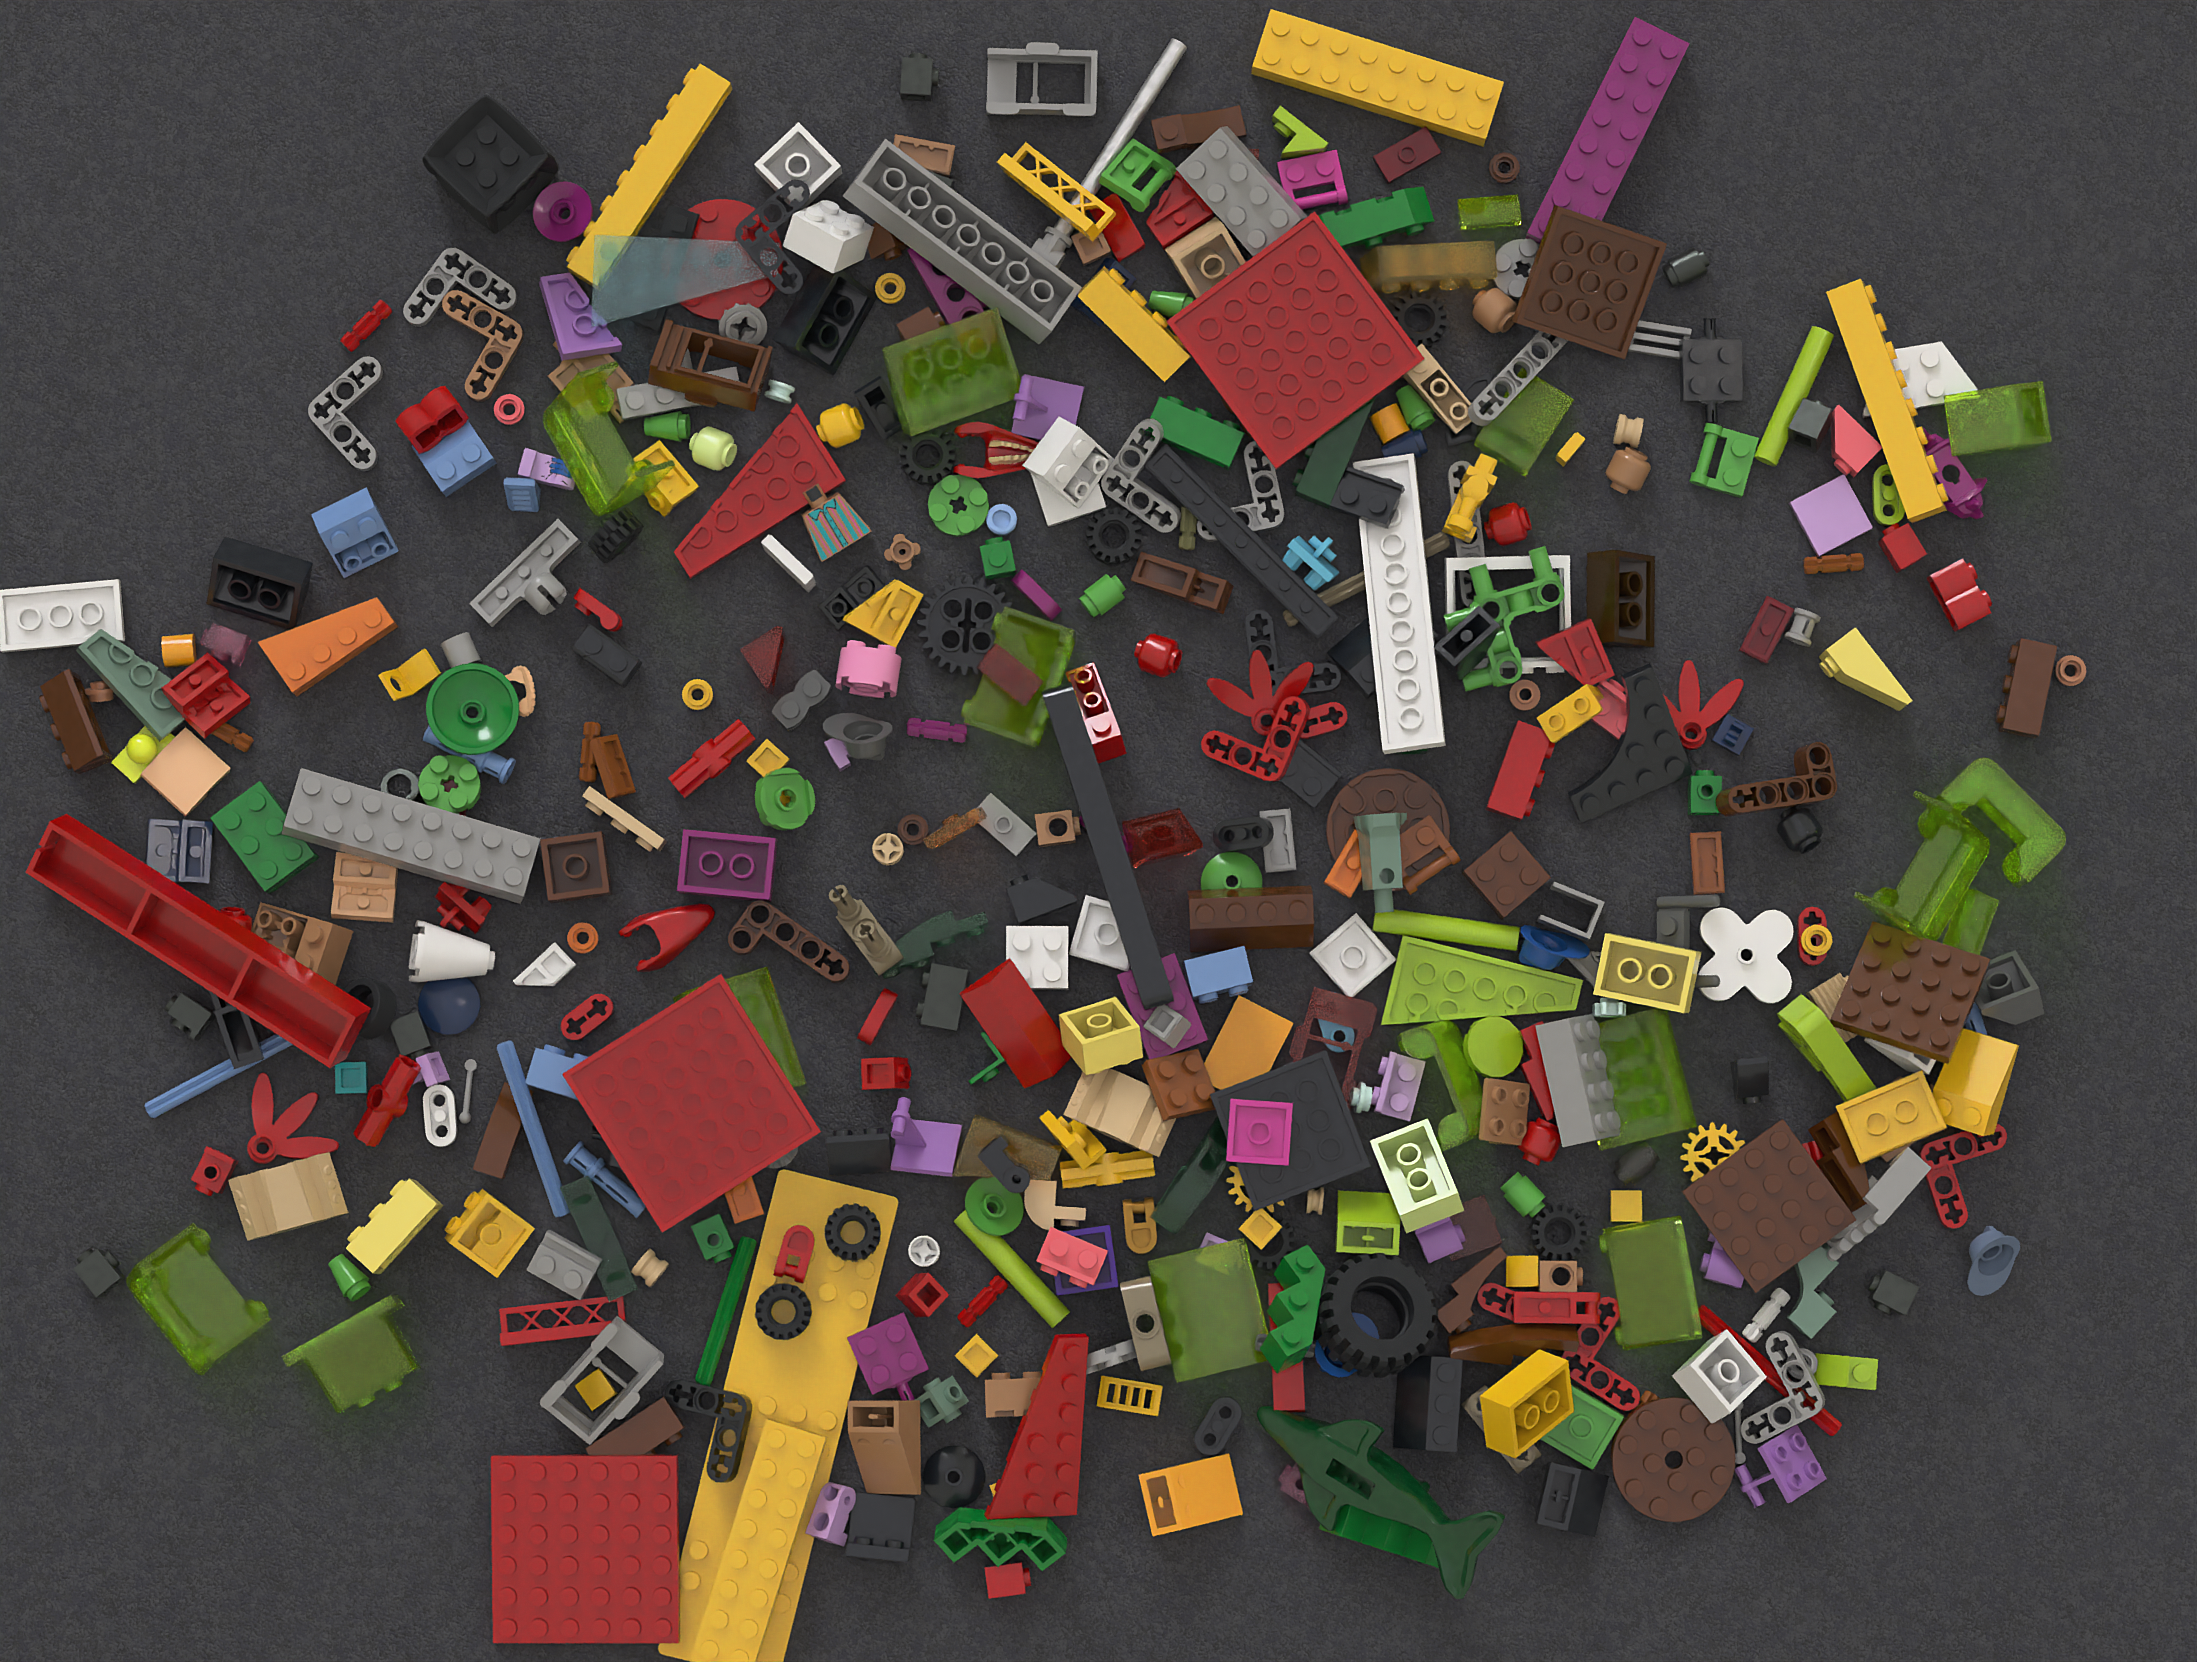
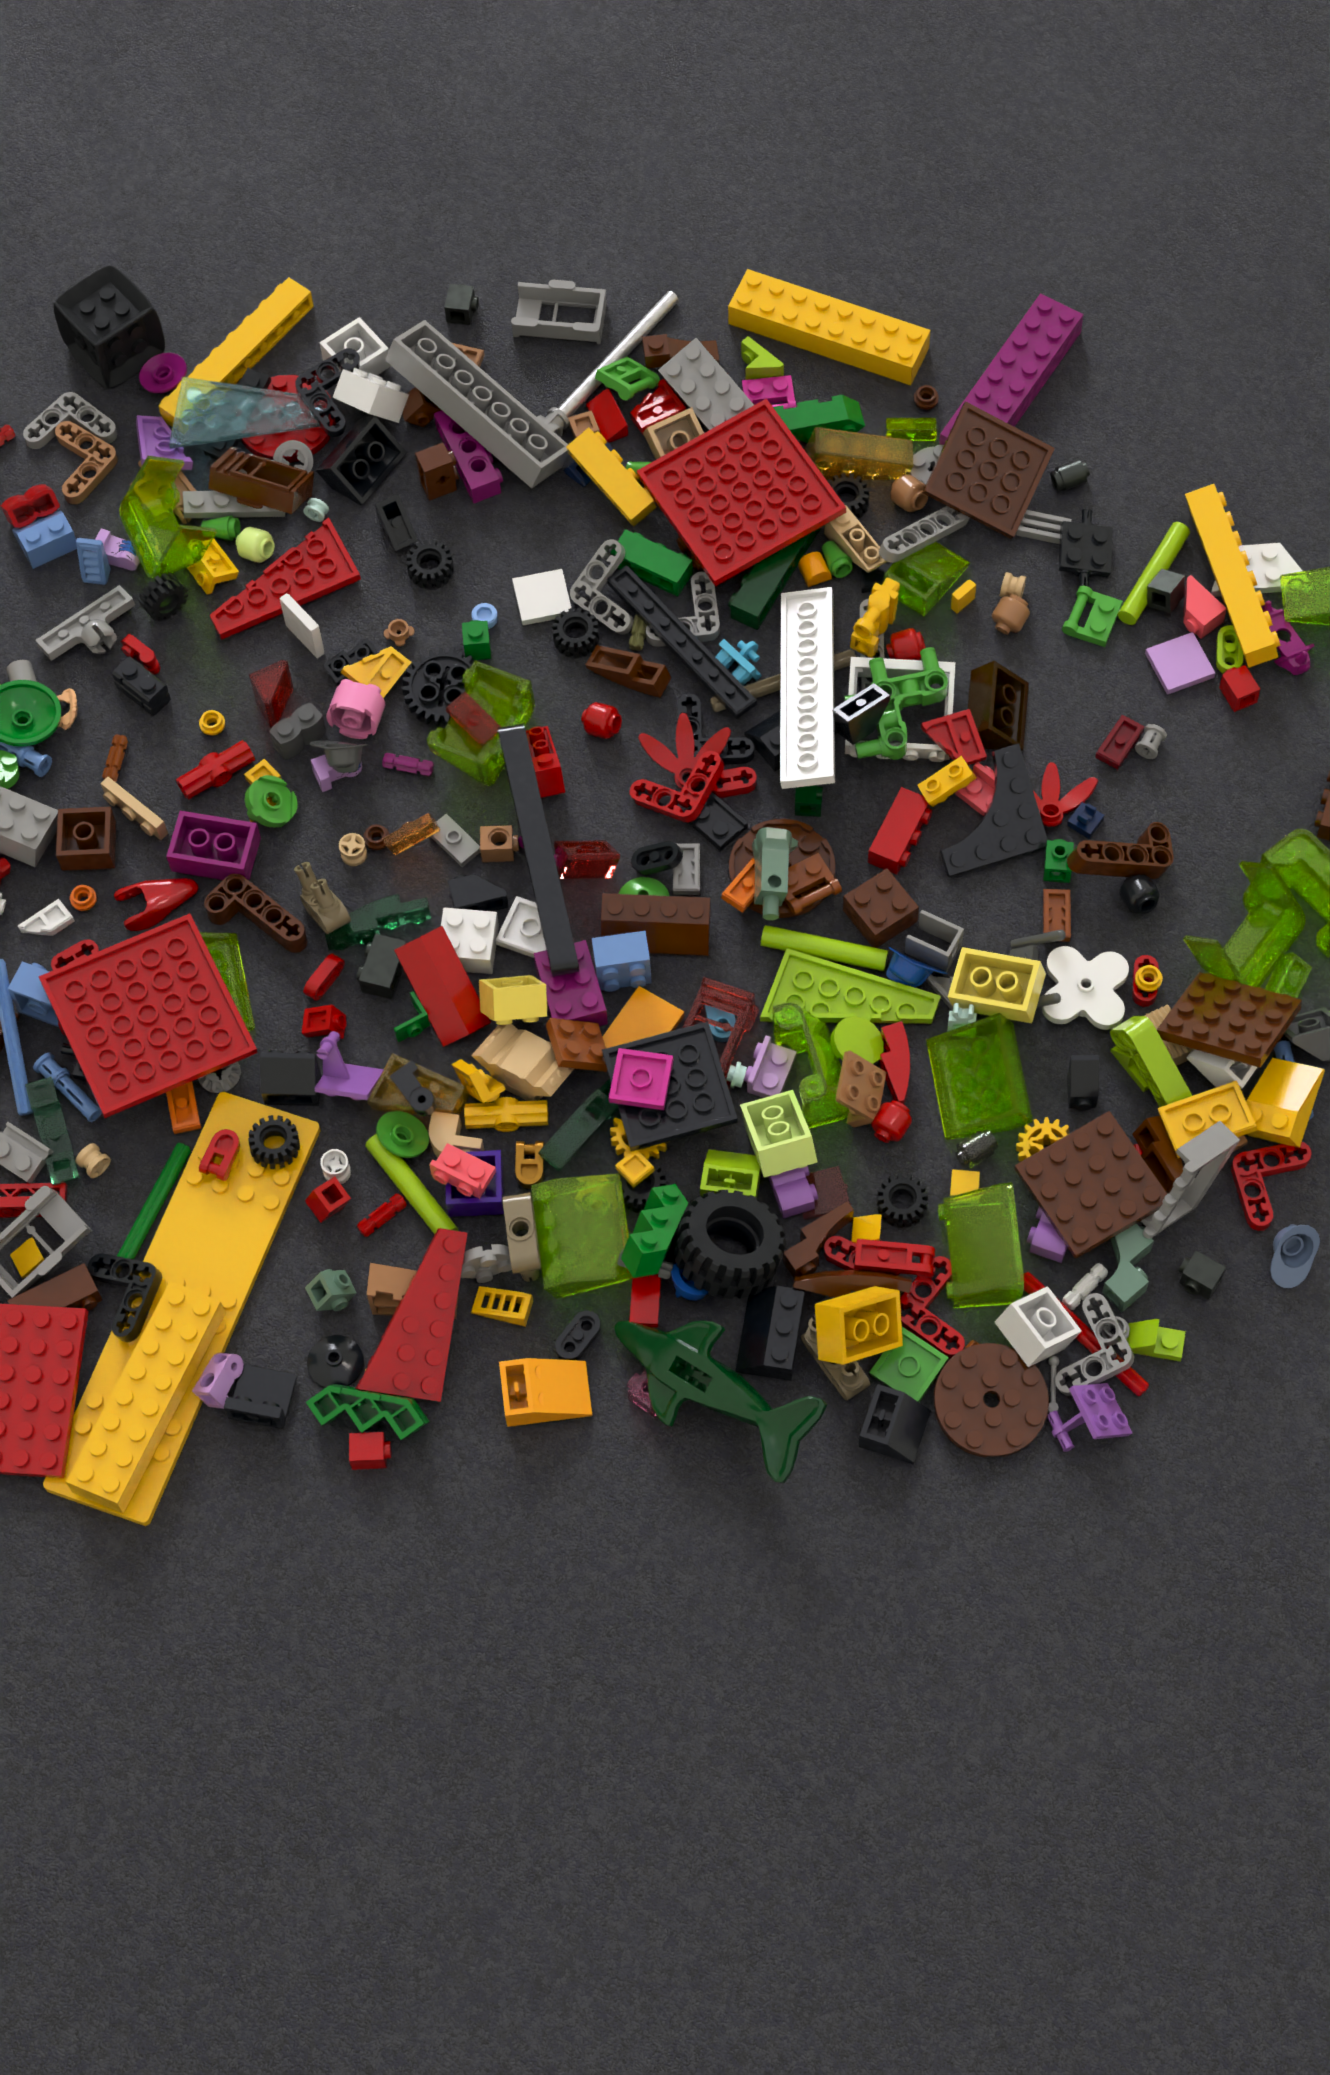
camera: 10 degrees right, 20 degrees down
(502, 402) = (95, 502): coral plate -> none
(612, 766) = (131, 768): dark orange plate -> none
(714, 1238) = (152, 1140): green brick -> none
(797, 1298) = (197, 1186): black tyre -> none
(831, 522) = (343, 603): torso -> none
(840, 425) = (361, 536): yellow head -> none
(883, 281) = (414, 441): yellow plate -> none
(887, 1444) = (276, 1318): medium nougat slope -> none
(888, 1355) = (291, 1249): magenta plate -> none
(942, 512) = (446, 590): bright green plate -> none
(951, 372) = (456, 494): clear neon green slope -> none
(976, 1355) = (367, 1255): yellow tile -> none
(1004, 450) = (493, 564): red animal -> none
(1036, 595) = (500, 661): magenta beam -> none
(1041, 403) = (530, 537): medium lavender plate -> none
(1049, 196) = (560, 388): yellow fence -> none
(1068, 462) = (544, 571): white slope -> none
(1102, 595) = (560, 673): bright green brick -> none
(1167, 1025) = (572, 992): light grey slope -> none
(1315, 1200) = (687, 1155): tan bush -> none
(1352, 956) = (742, 963): white tile -> none
(1367, 497) = (789, 613): black plate -> none
(1384, 1535) = (718, 1436): green brick -> none
(1406, 155) = (848, 383): dark red plate -> none
(1407, 443) = (828, 580): dark blue cone -> none
(1520, 704) = (909, 782): nougat plate -> none
(1523, 1195) = (872, 1165): bright green brick -> none
(1545, 1280) = (892, 1225): medium nougat brick -> none
(1578, 1080) = (929, 1069): light grey brick -> none
(1833, 563) = (1180, 698): dark orange axle -> none
(1859, 667) = (1201, 772): light yellow slope -> none
(1959, 594) = (1287, 727): red brick -> none

